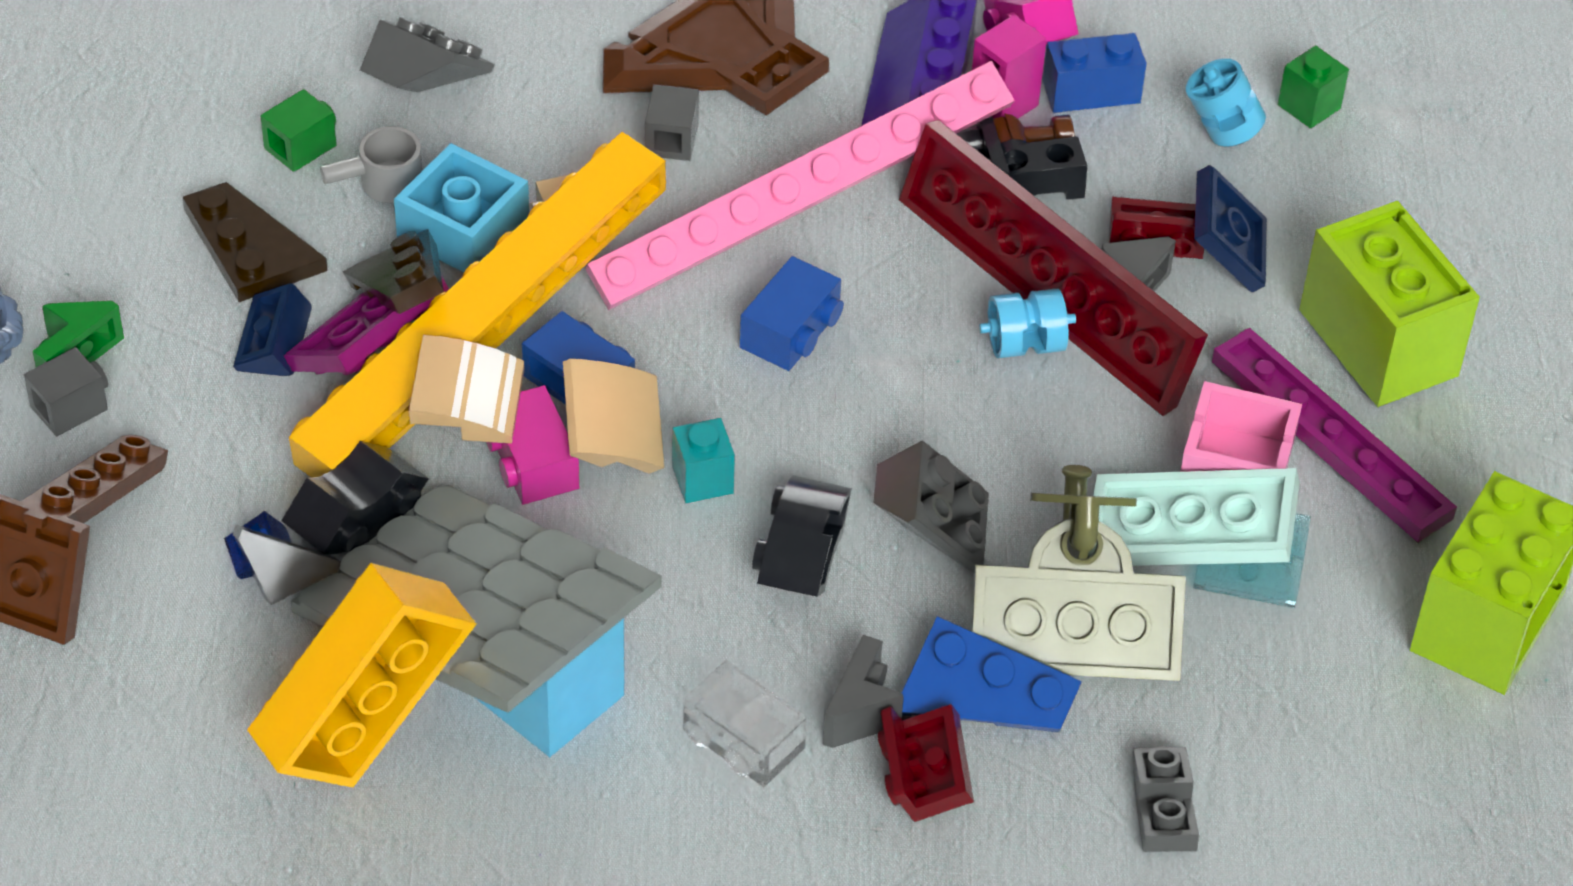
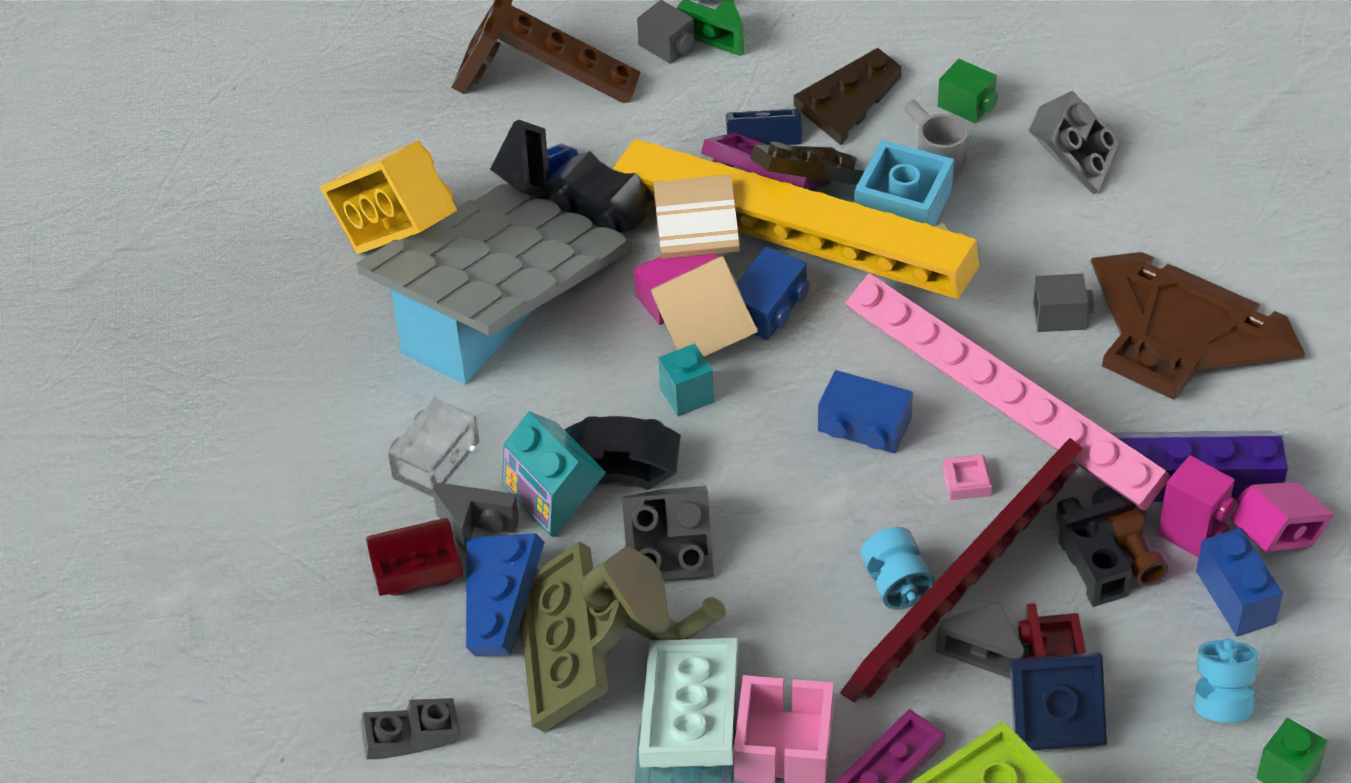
camera: 85 degrees right, 0 degrees up
(837, 600) = (547, 471): none -> teal slope
(894, 255) = (967, 477): none -> bright pink tile

